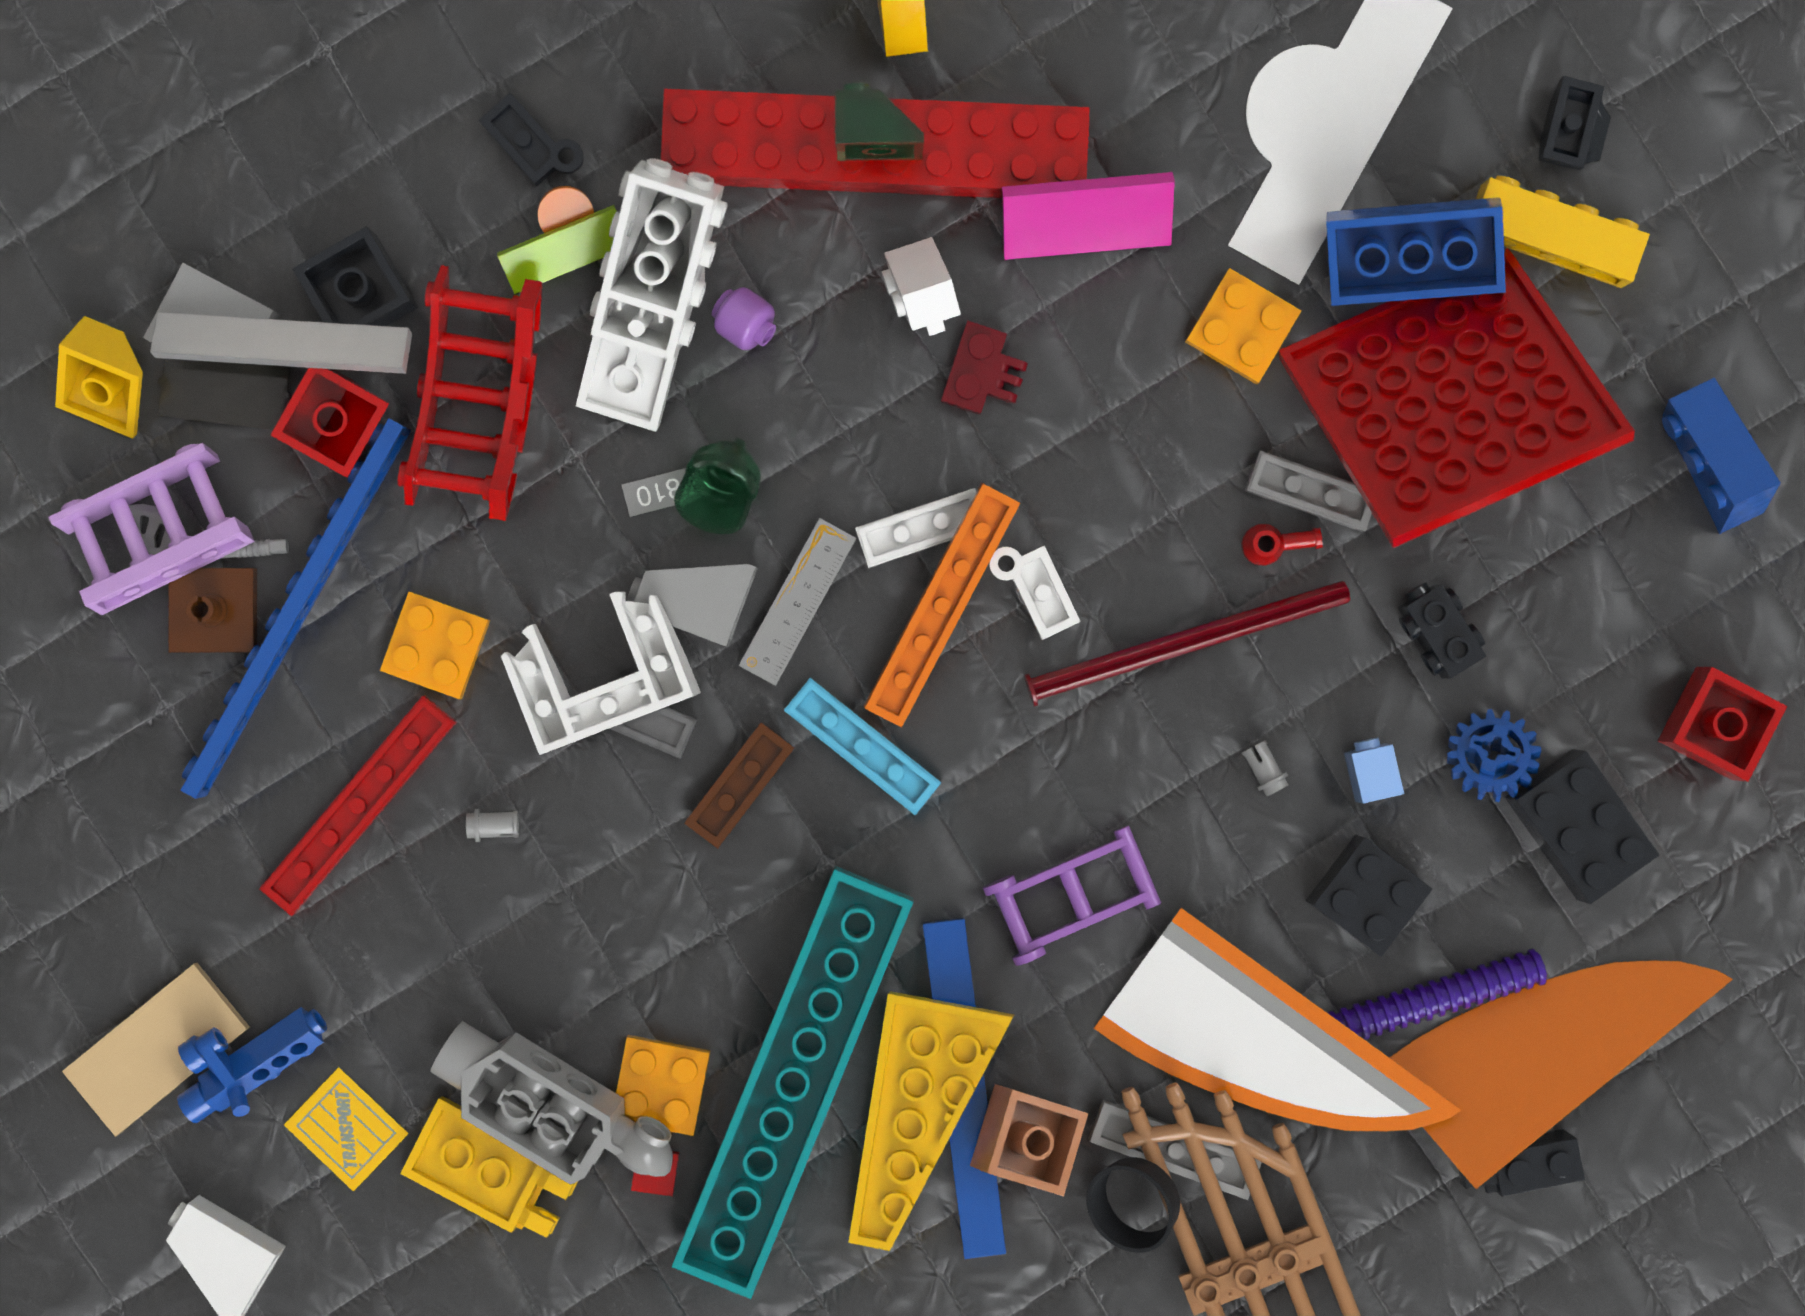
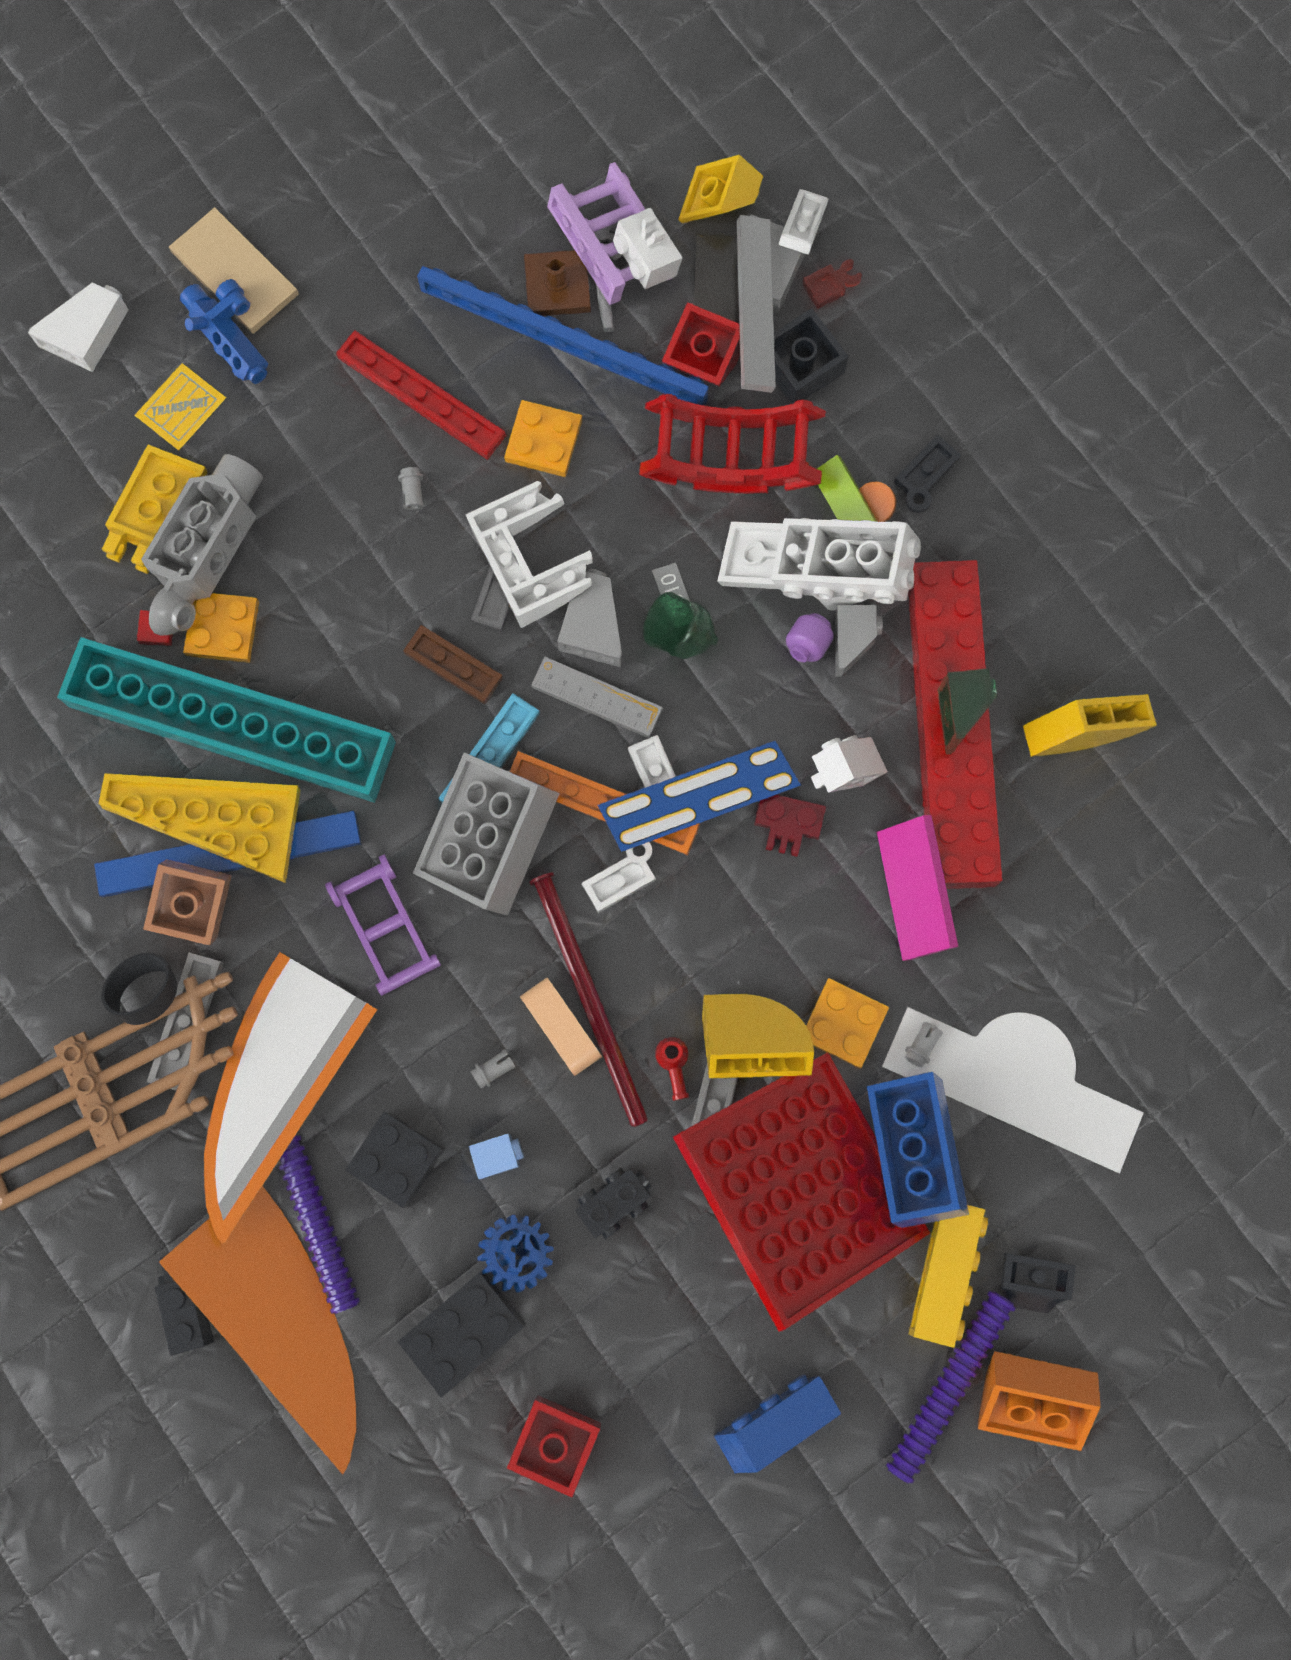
camera: 90 degrees right, 10 degrees down
(159, 266) = (803, 221): none -> white tile
(185, 483) = (647, 248): none -> white brick
(249, 244) = (828, 285): none -> clear red plate
(745, 260) = (855, 634): none -> light grey slope
(944, 480) = (698, 795): none -> sticker
(971, 757) = (485, 834): none -> light grey slope
(1220, 680) = (560, 1026): none -> light nougat beam
(1260, 439) = (754, 1038): none -> yellow brick
(1282, 233) = (922, 1046): none -> light grey pin
(1690, 243) = (950, 1387): none -> dark purple piece
(1714, 139) = (1039, 1401): none -> orange slope

